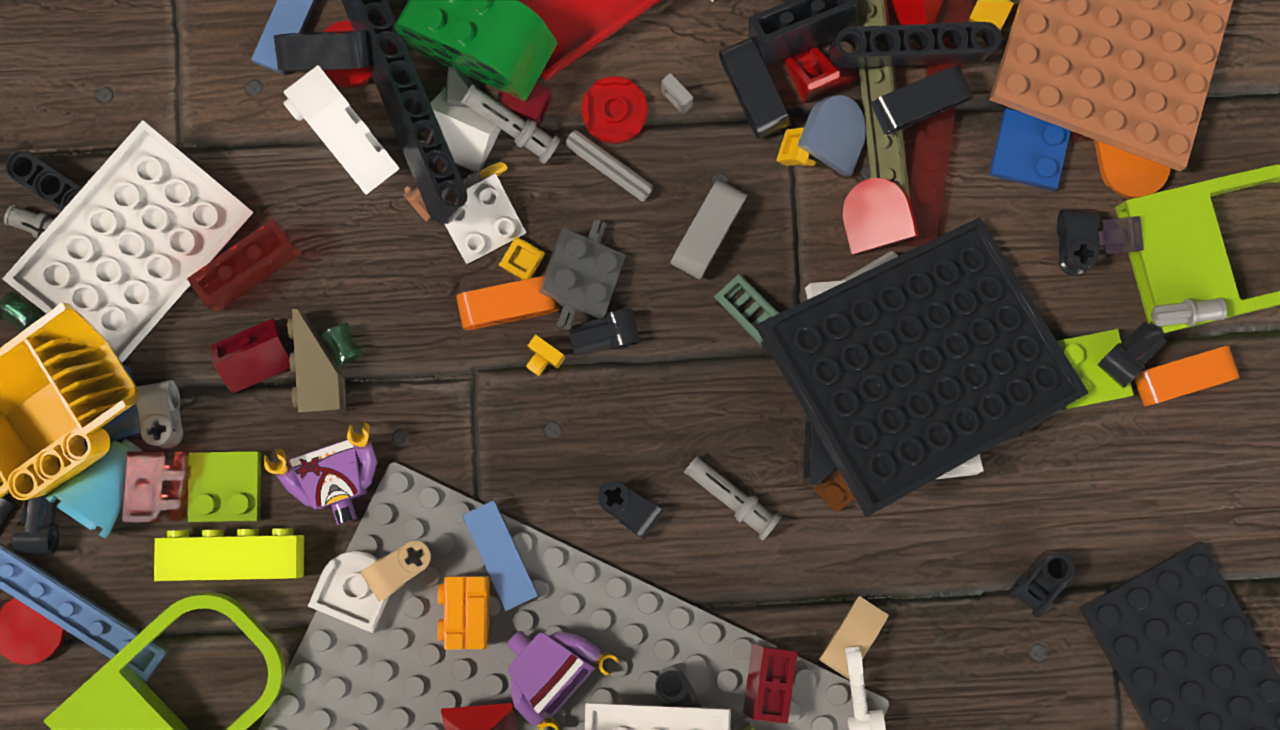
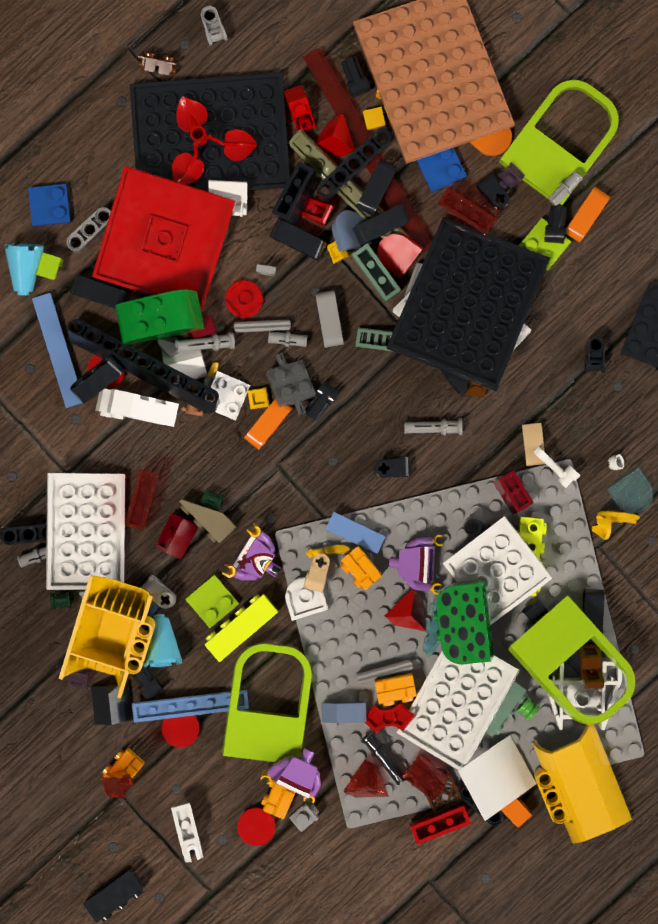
camera: 40 degrees left, 5 degrees up
(144, 486) = (181, 628): clear red plate -> none
(443, 550) = (331, 550): none -> yellow piece
(544, 354) = (303, 431): yellow tile -> none
(629, 211) = (287, 339): none -> light grey pin
(825, 217) = (376, 273): none -> sand green brick
(887, 155) = (381, 224): none -> black beam
(1024, 234) = (468, 209): none -> clear red brick

